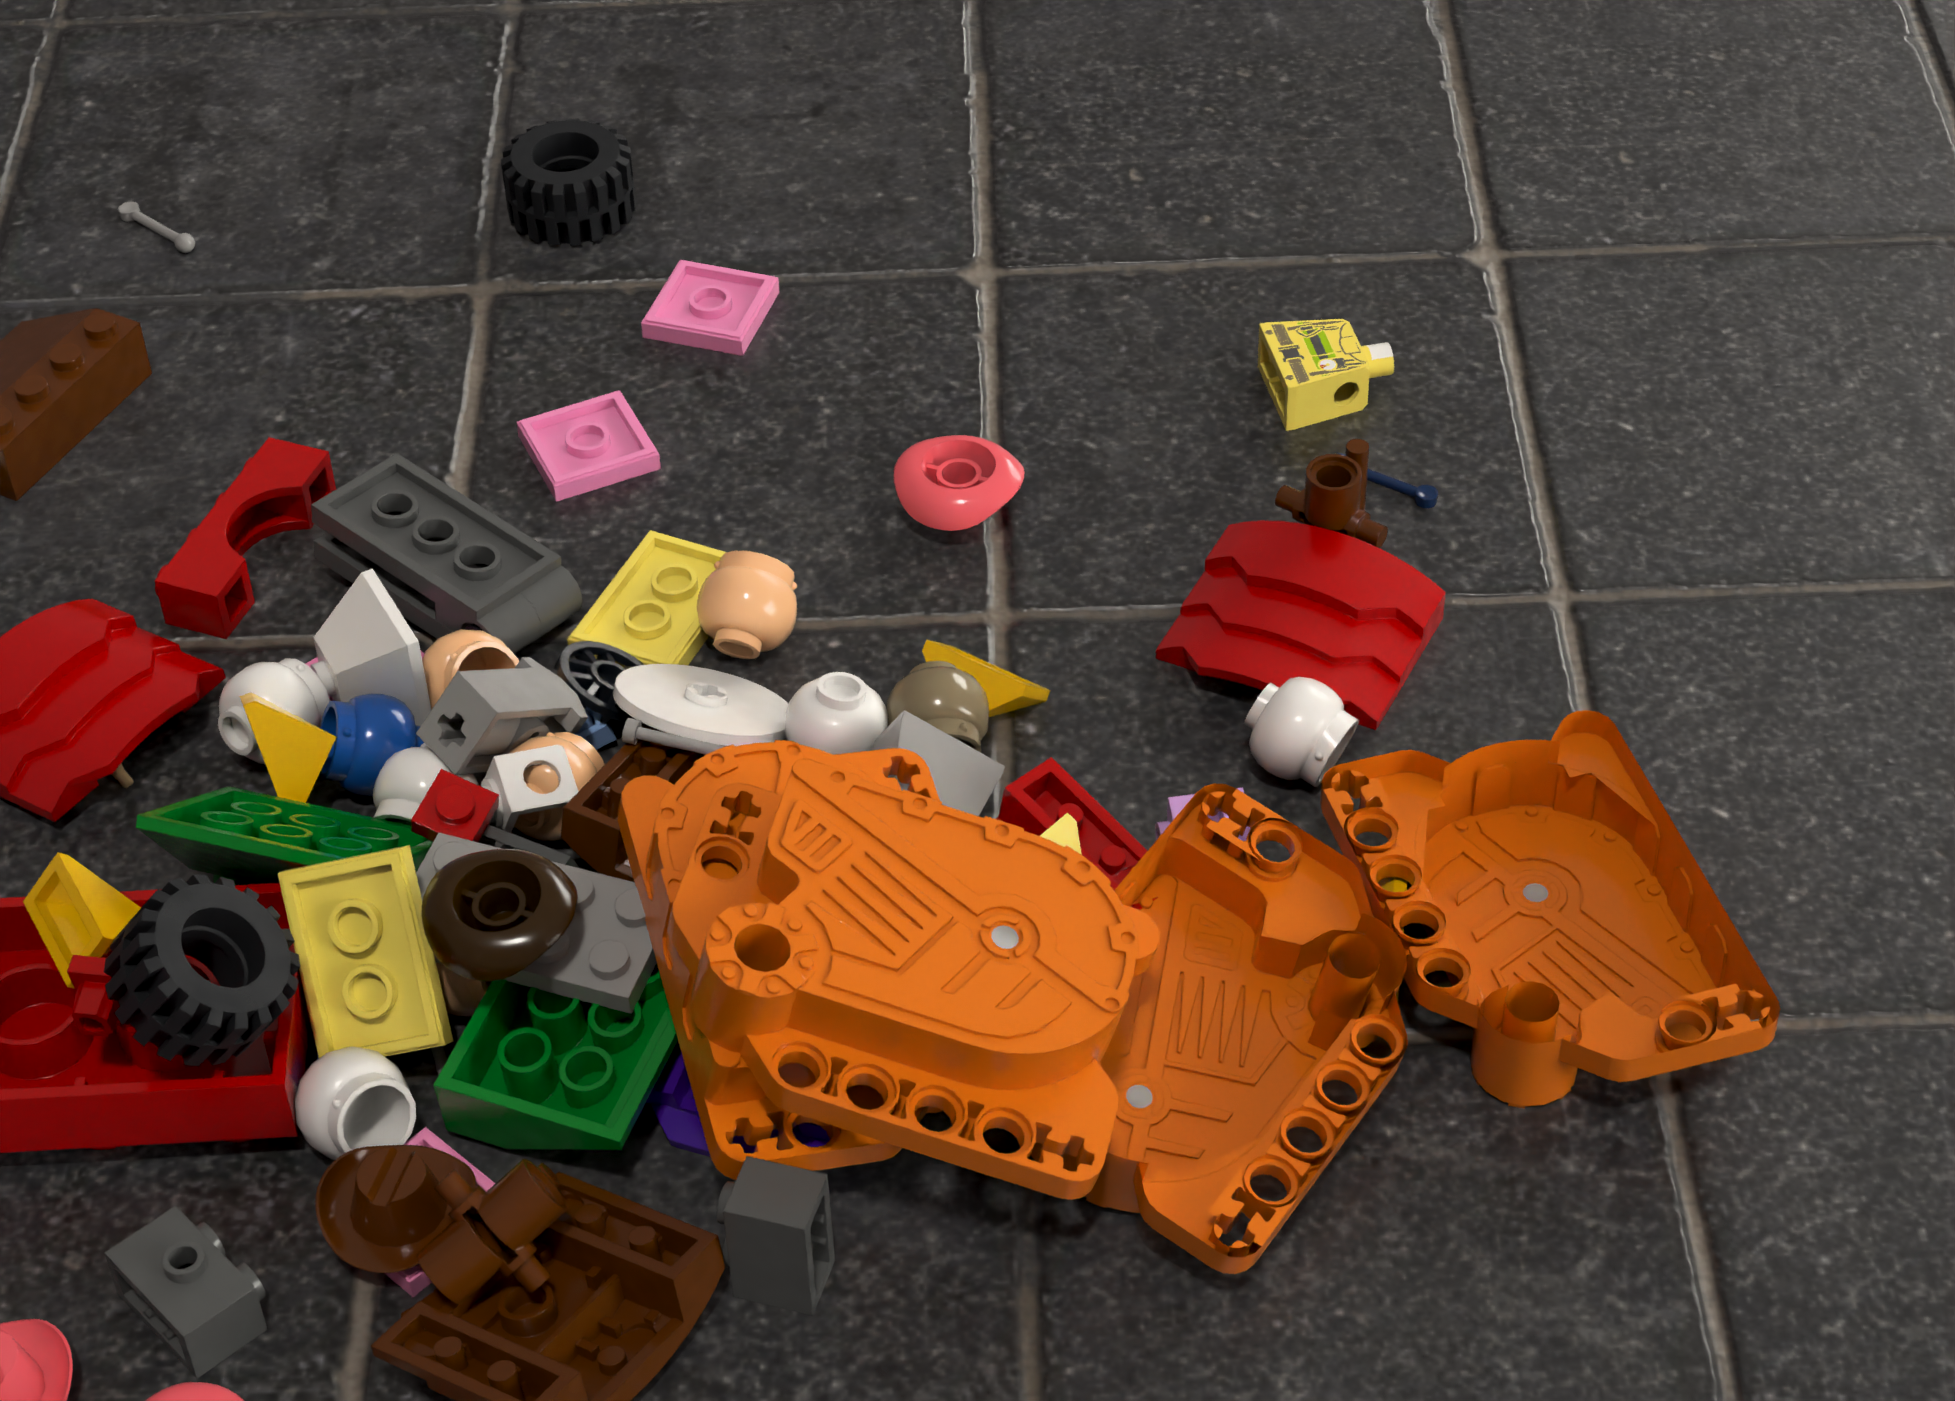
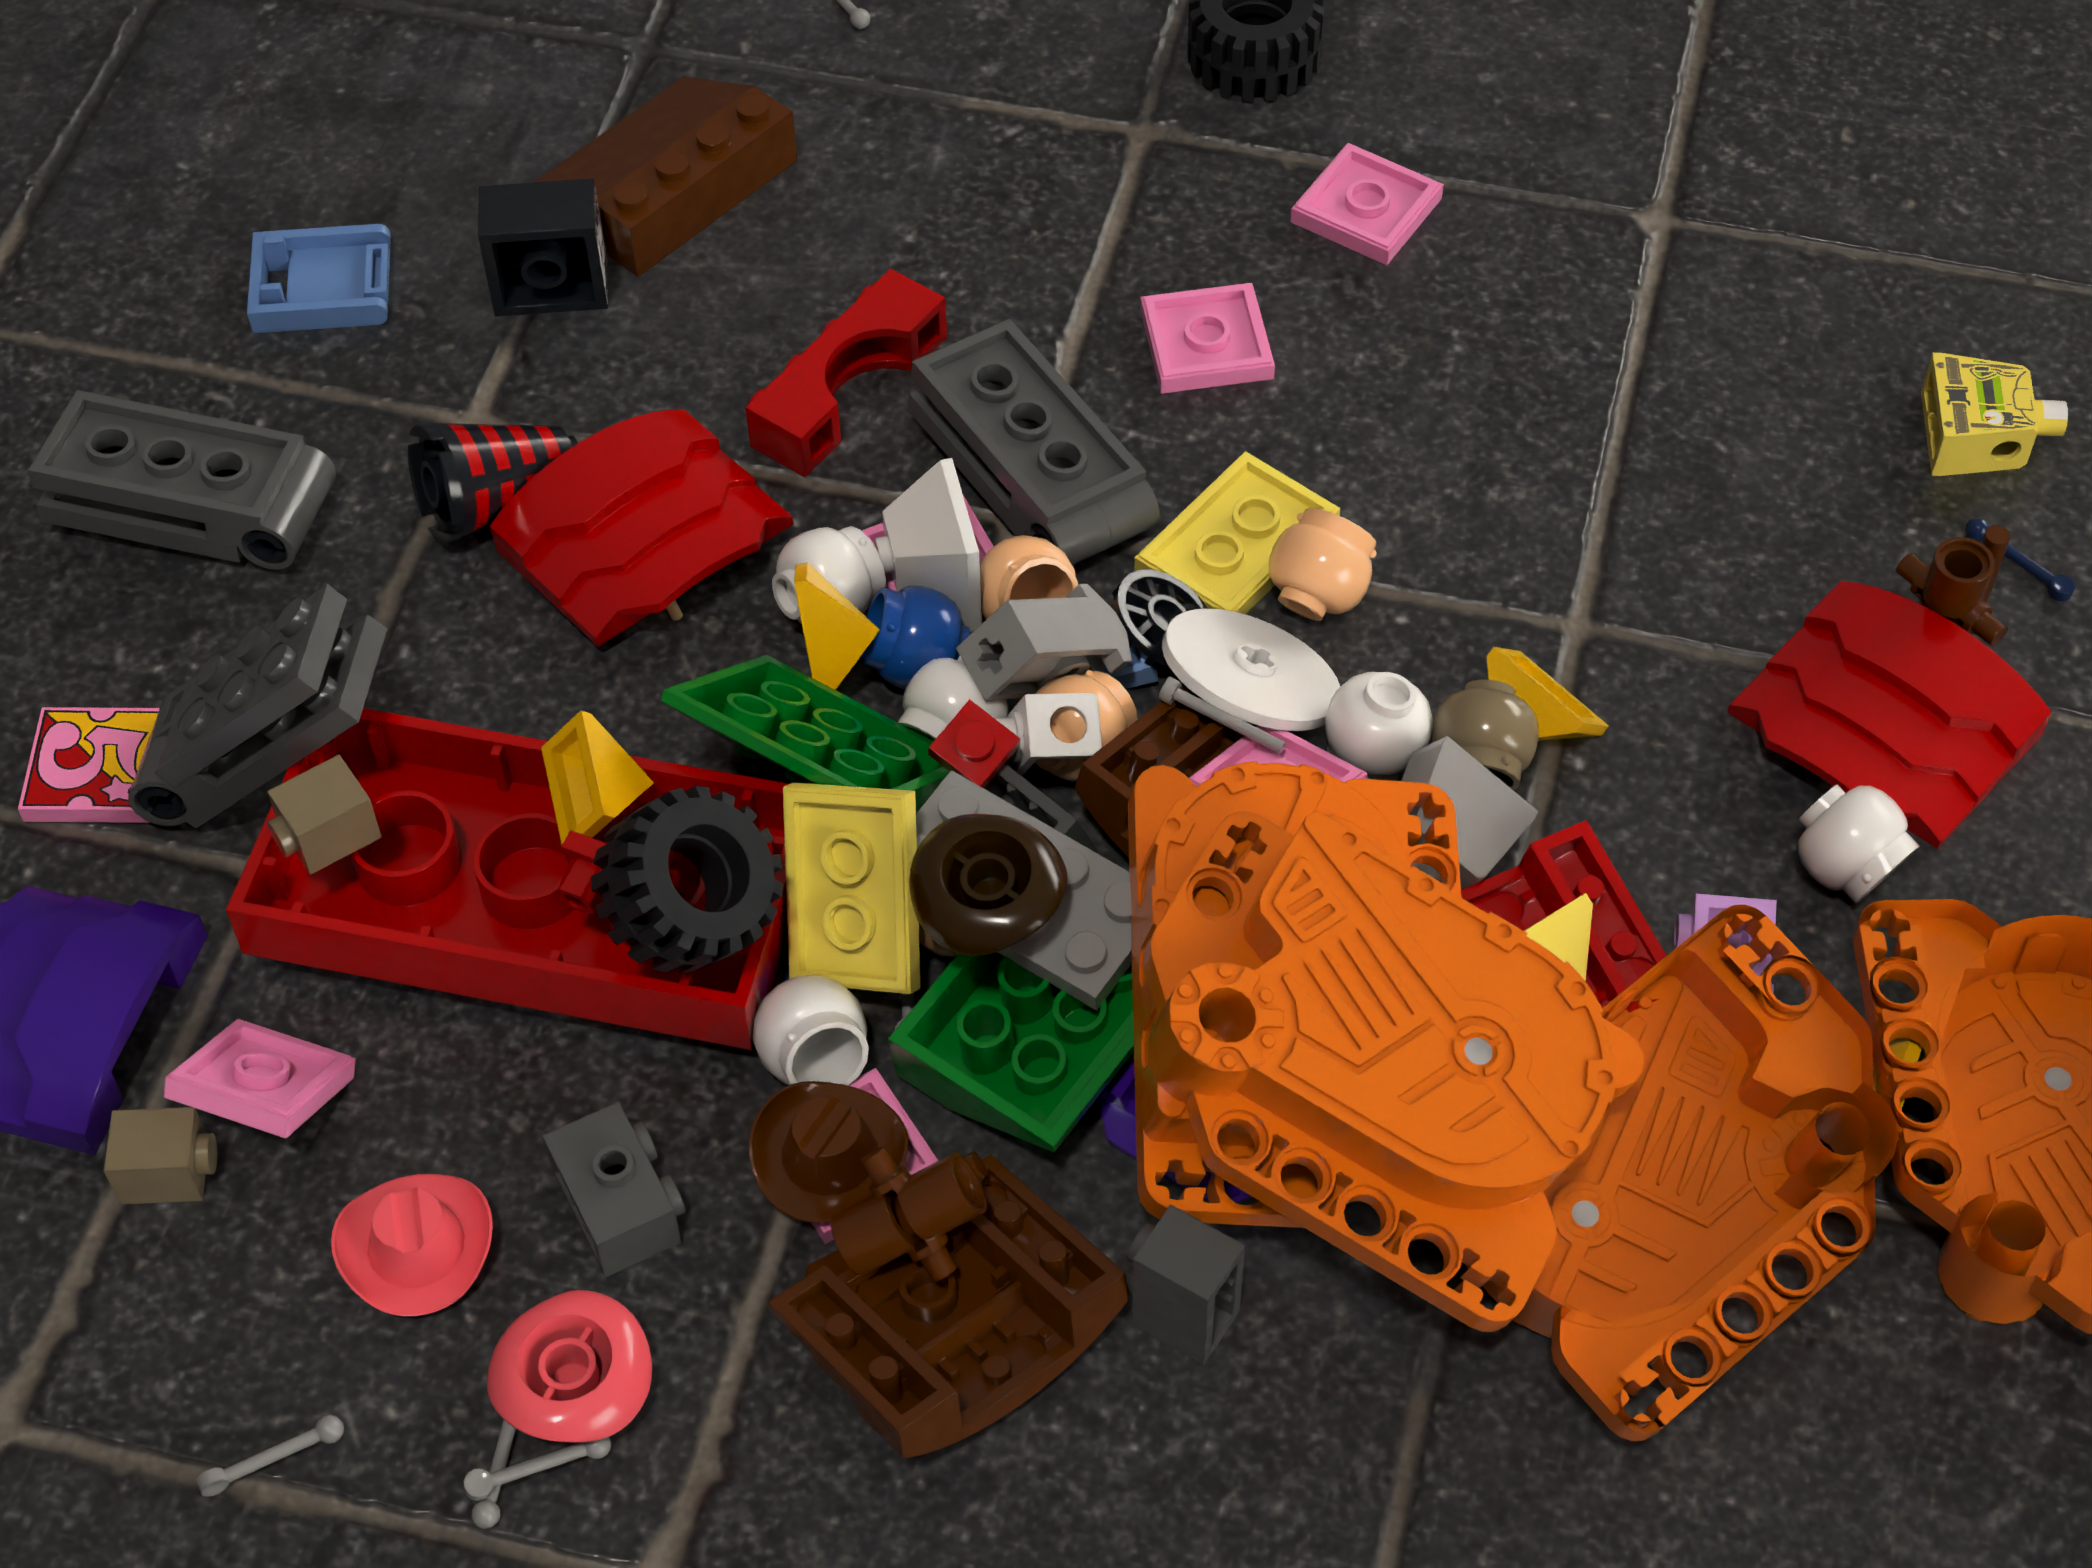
camera: 15 degrees right, 10 degrees up
(956, 481) = (1569, 466): coral hat -> none

